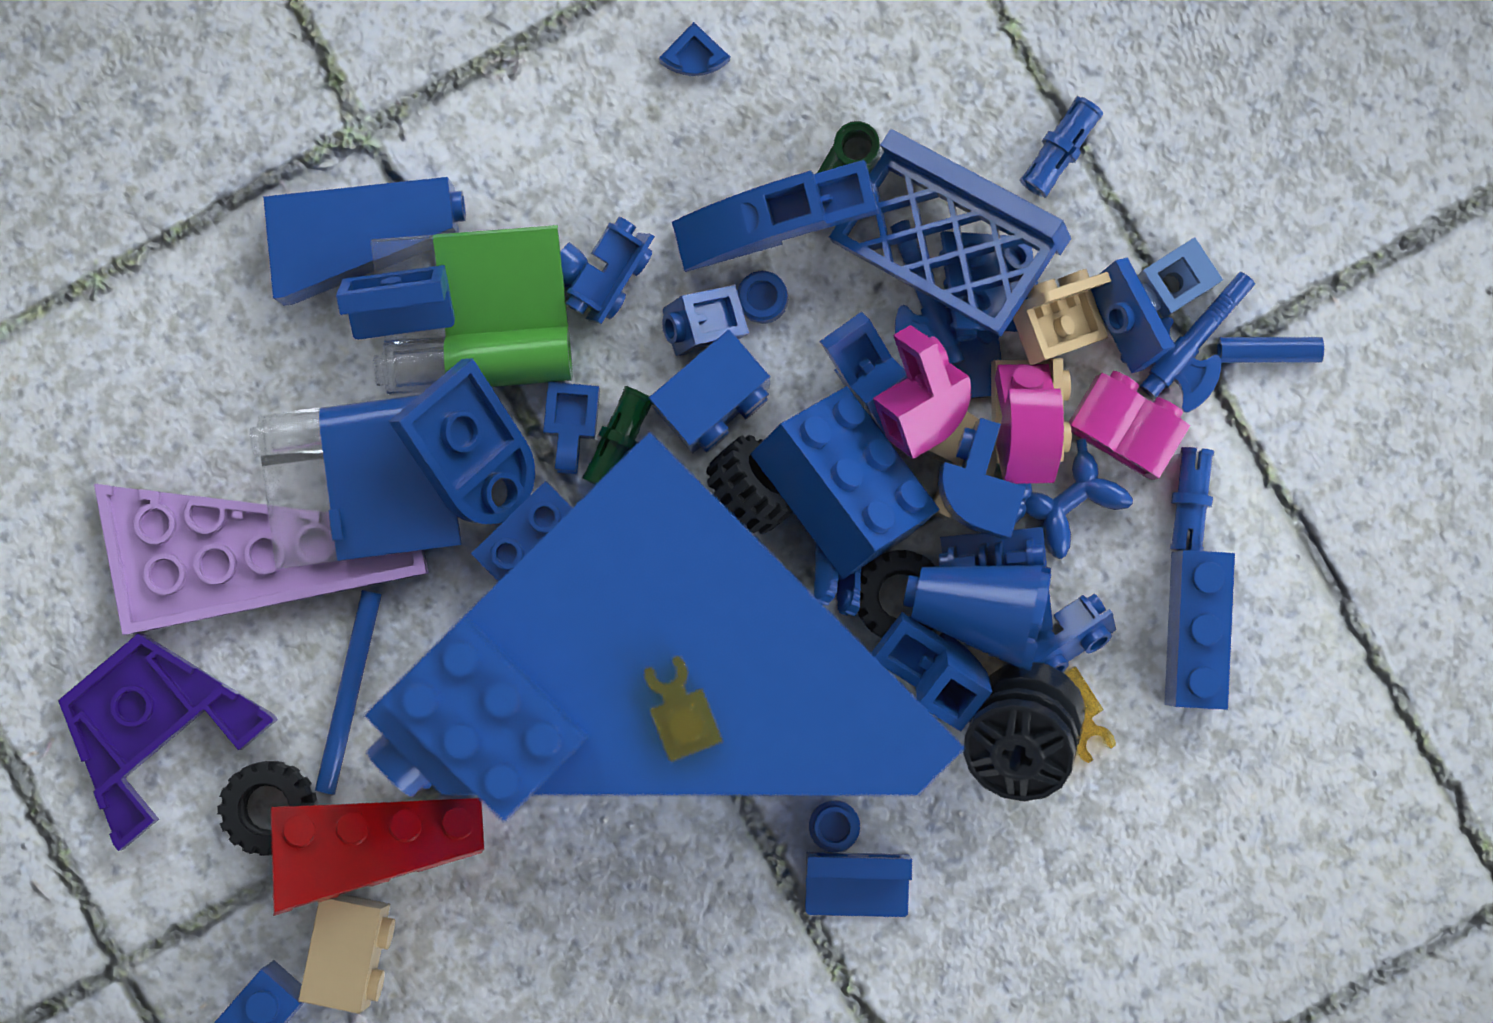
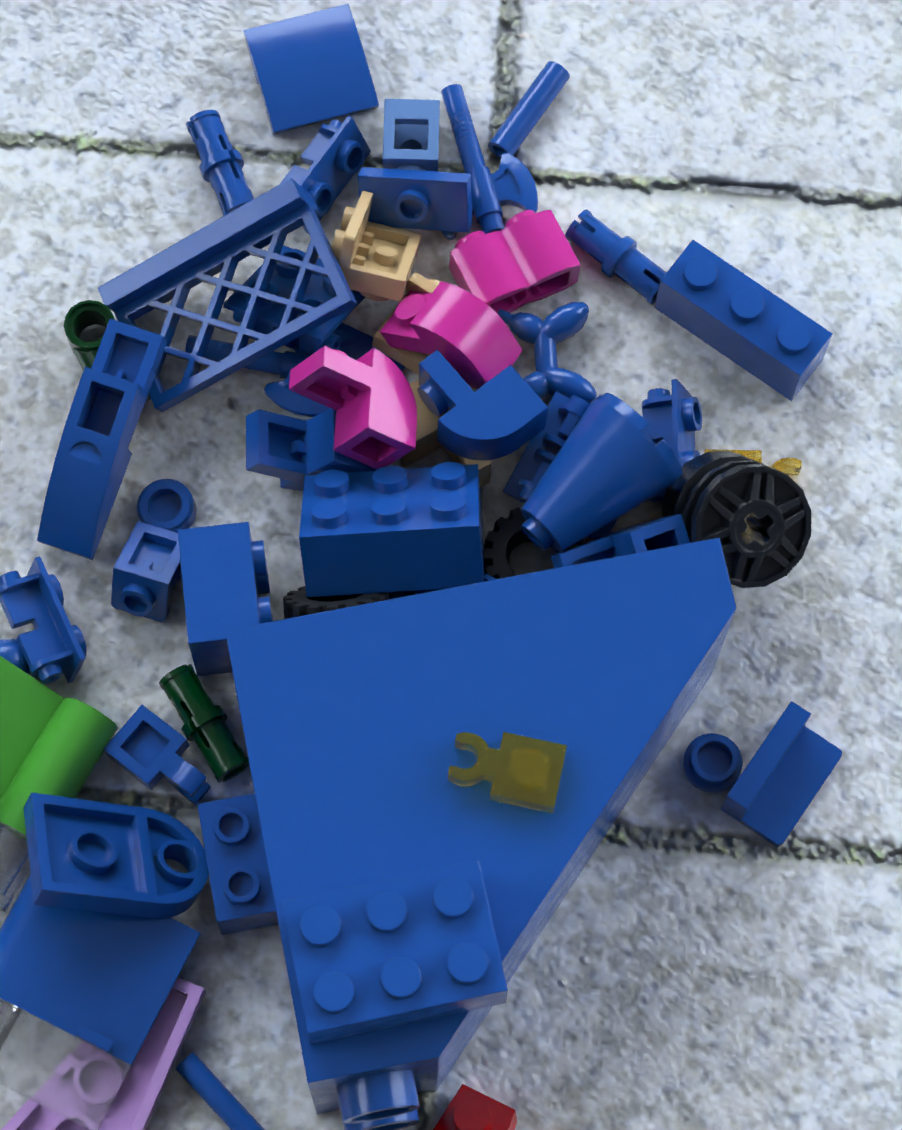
camera: 60 degrees left, 15 degrees down
(1129, 229) = (333, 160): none -> blue hinge
(1189, 158) = (311, 68): none -> blue slope

